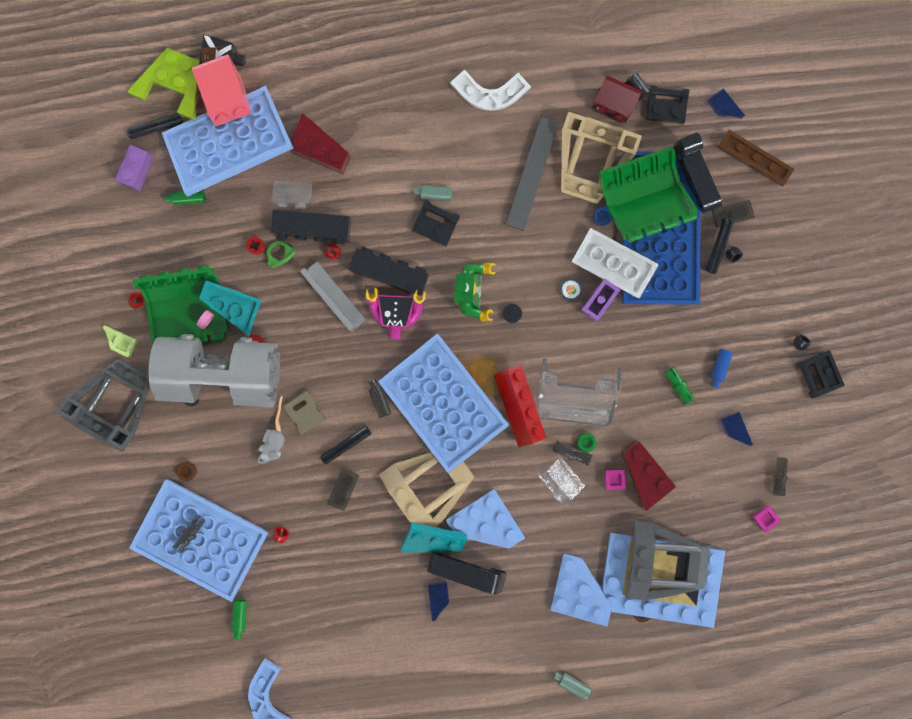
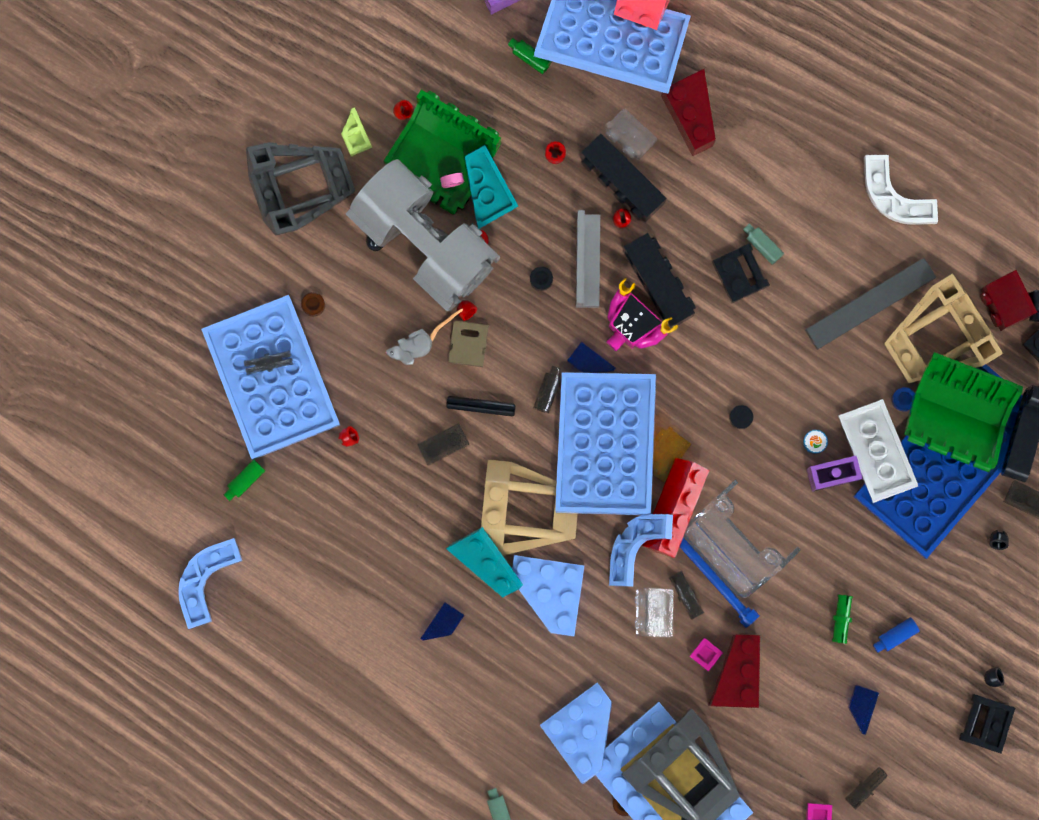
camera: 40 degrees right, 5 degrees down
(286, 392) = (469, 309): none -> red hinge
(289, 253) = (581, 185): bright green piece -> none
(315, 333) = (541, 278): none -> black tile
(388, 359) = (589, 361): none -> clear blue tile
(468, 290) = (718, 360): green torso -> none
(468, 574) = (492, 620): black beam -> none
(510, 455) = (627, 544): none -> light blue plate
(586, 442) = (708, 597): green tile -> none
(619, 433) = (746, 614): none -> blue piece
(719, 246) = (992, 520): black axle -> none

